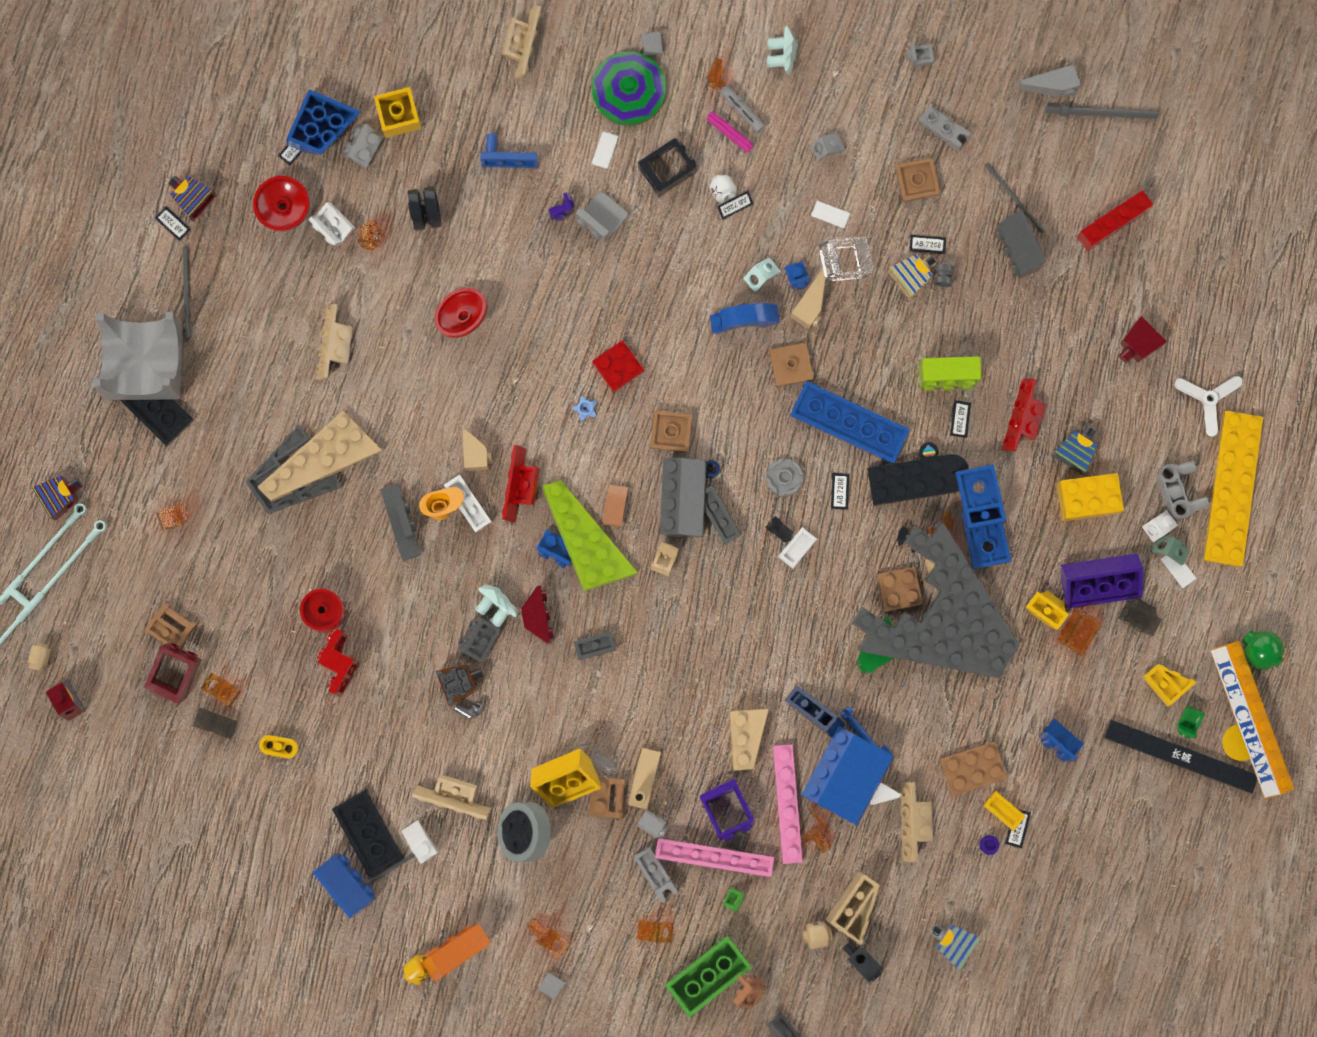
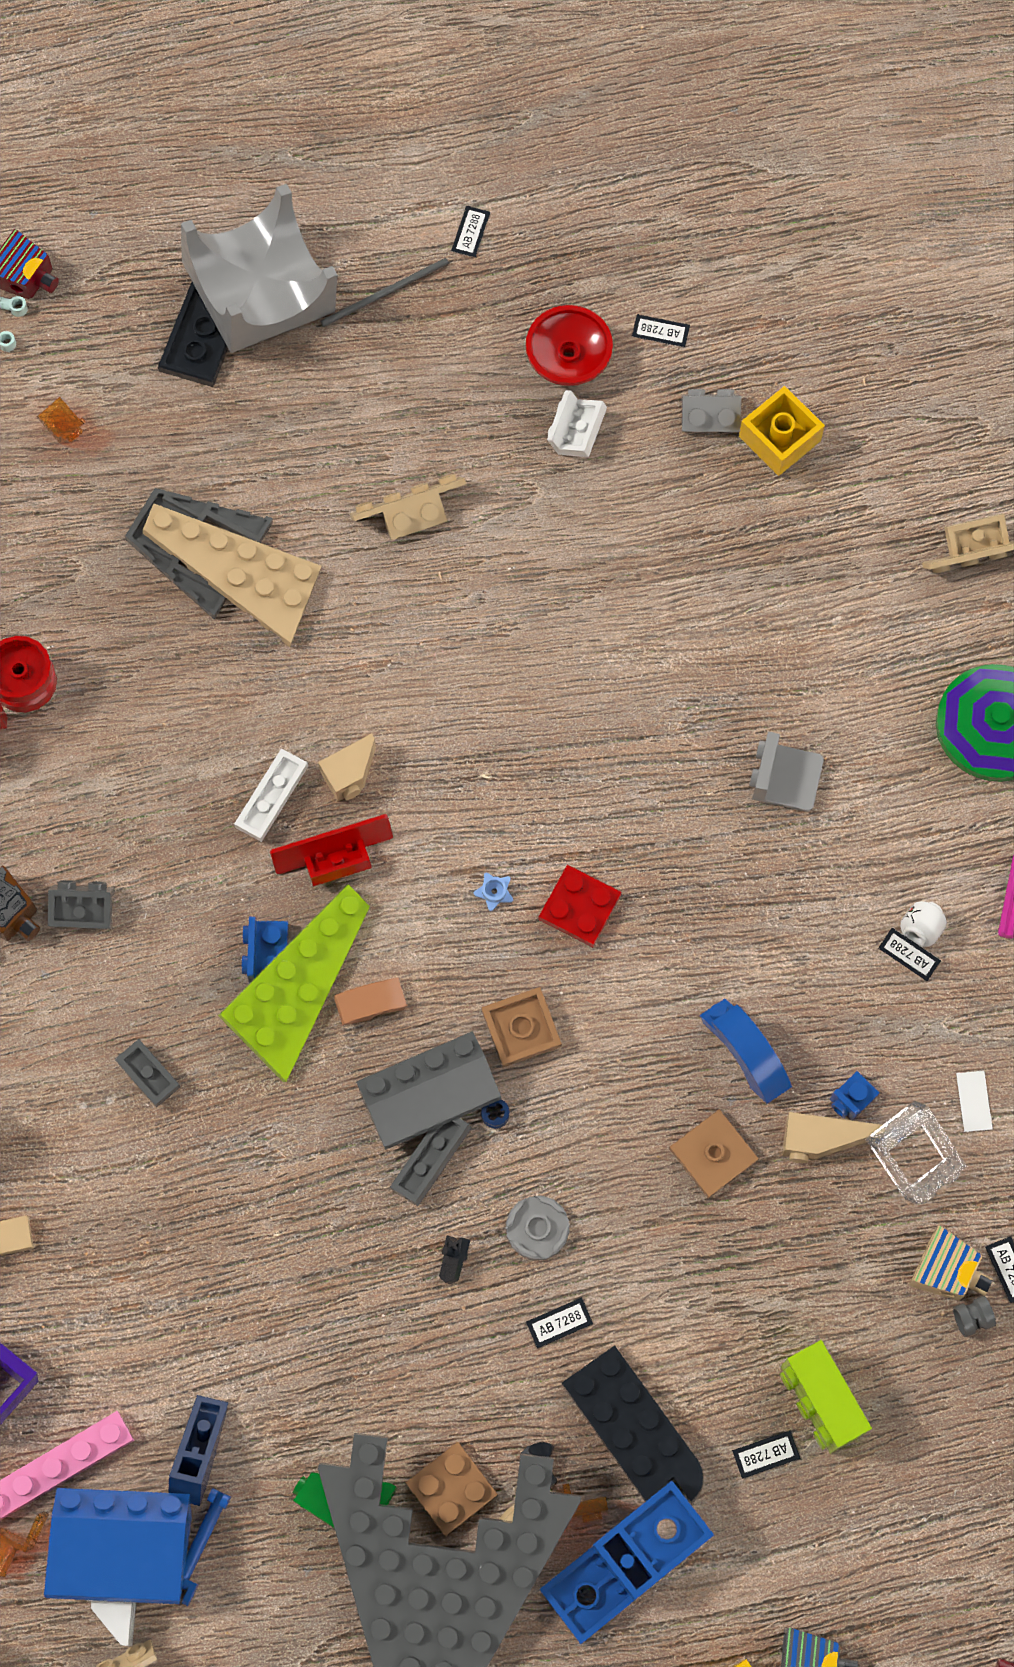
camera: 60 degrees right, 10 degrees down
(191, 195) = (518, 233): torso -> none
(319, 123) = (708, 337): blue wedge -> none
(370, 235) = (587, 480): clear orange head -> none
(400, 522) = (200, 718): dark grey bracket -> none
(420, 209) = (663, 529): black wheel -> none
(441, 503) = (251, 756): light orange piece -> none
(460, 312) = (540, 650): red dish -> none
(492, 158) = (788, 589): blue piece -> none
(494, 595) = (151, 899): light aqua connector -> none
(536, 616) = (152, 968): dark red slope -> none
(561, 211) = (763, 716): dark purple bracket -> none
(604, 150) = (888, 734): white sticker -> none
(659, 188) = (899, 852): black window -> none
(664, 558) = (324, 1110): tan bracket -> none
(746, 734) = (110, 1361): tan wedge -> none
(764, 271) = (831, 1043): light aqua bracket -> none
(797, 548) = (439, 1300): white tile -> none
(849, 422) = (670, 1285): blue plate -> none
(928, 450) = (690, 1427): tile -> none
(1025, 416) = (821, 1555): red bracket -> none

